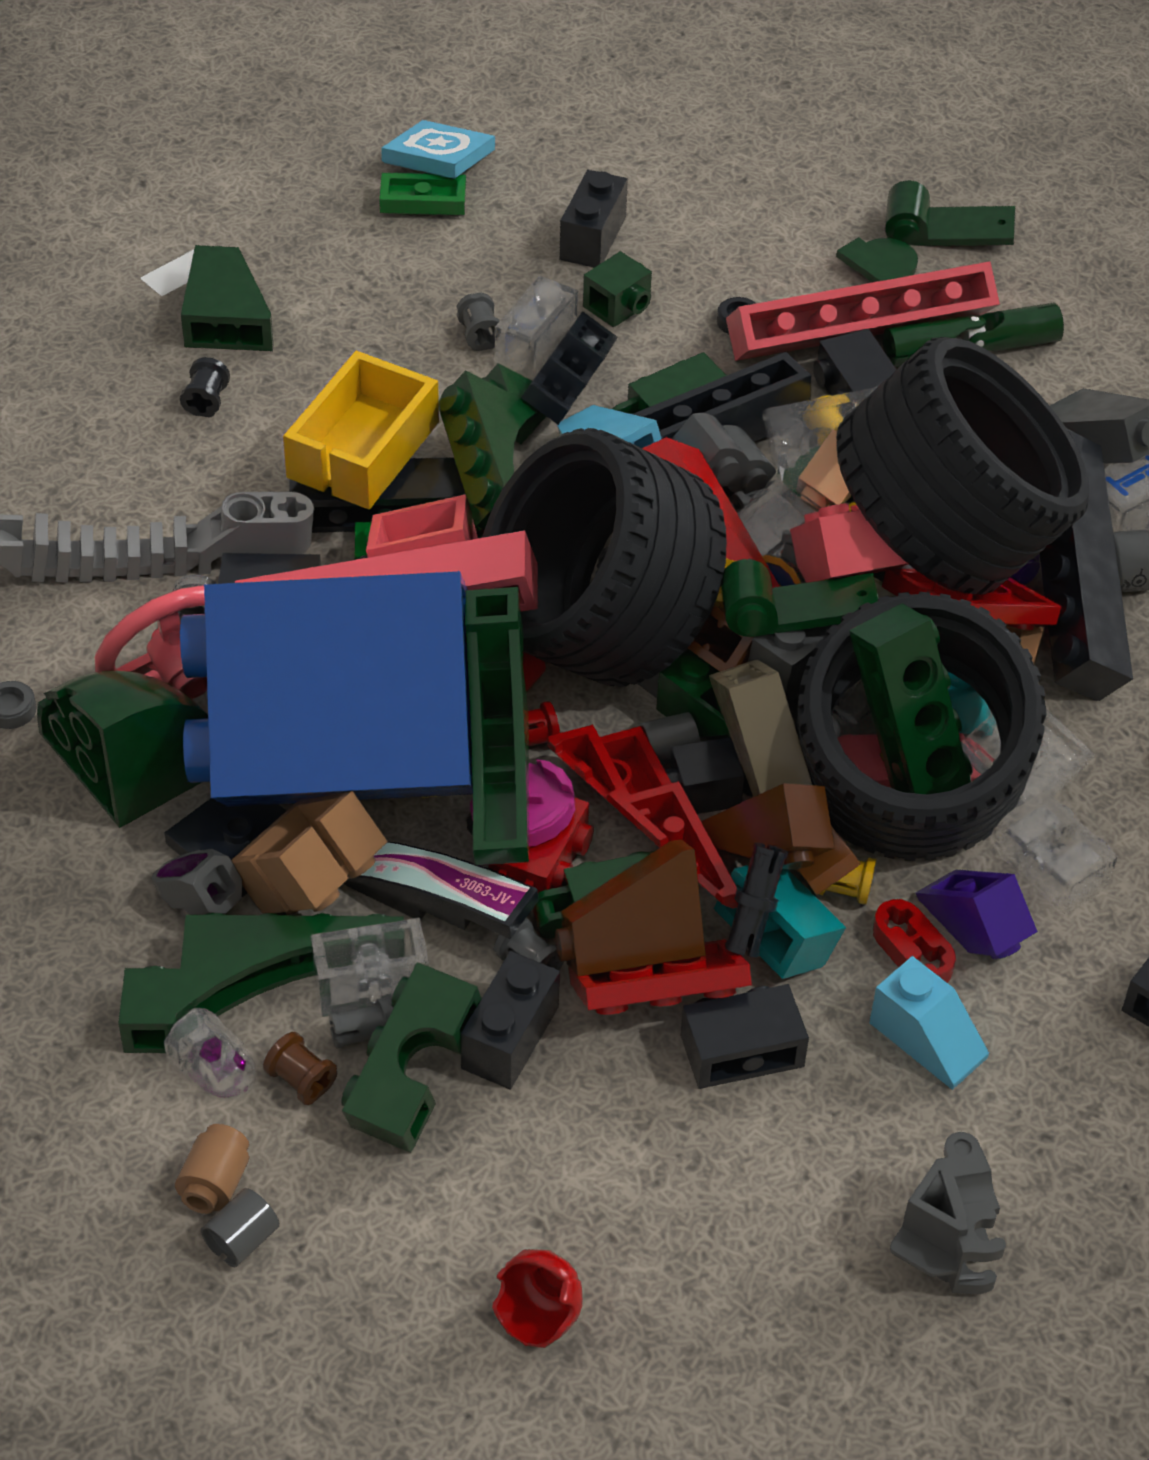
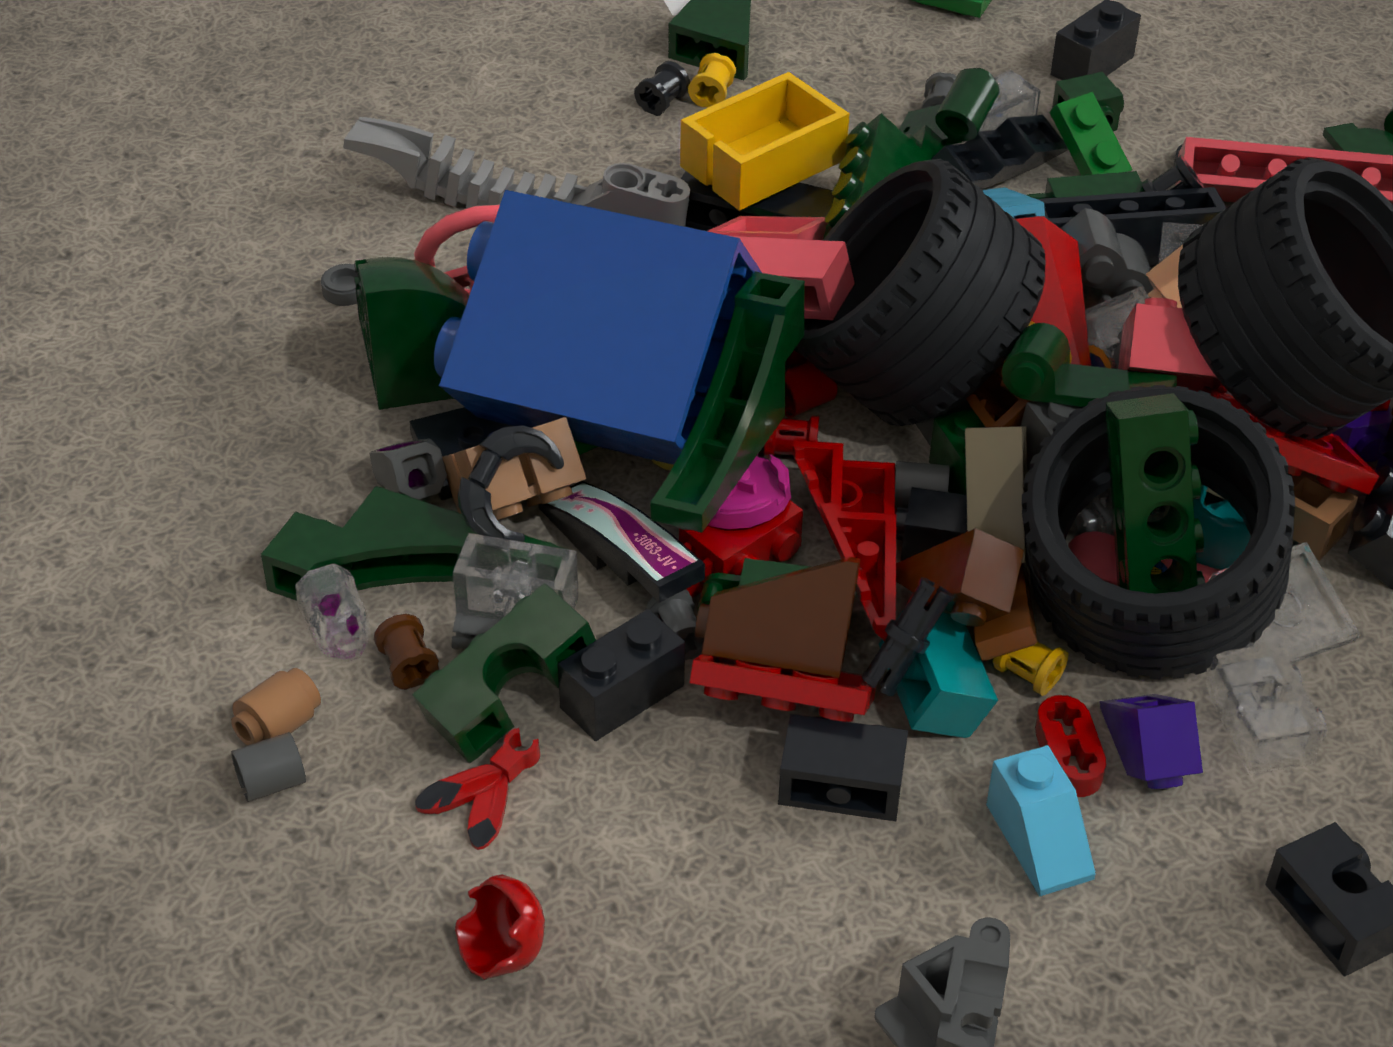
camera: 25 degrees right, 5 degrees down
(244, 374) = (711, 82): none -> yellow bush
(309, 842) = (499, 446): none -> black piece
(441, 1168) = (484, 785): none -> red piece
(522, 347) = (962, 110): none -> dark green door
(641, 327) = (1089, 136): none -> green plate
(746, 353) = (1180, 171): none -> black bush

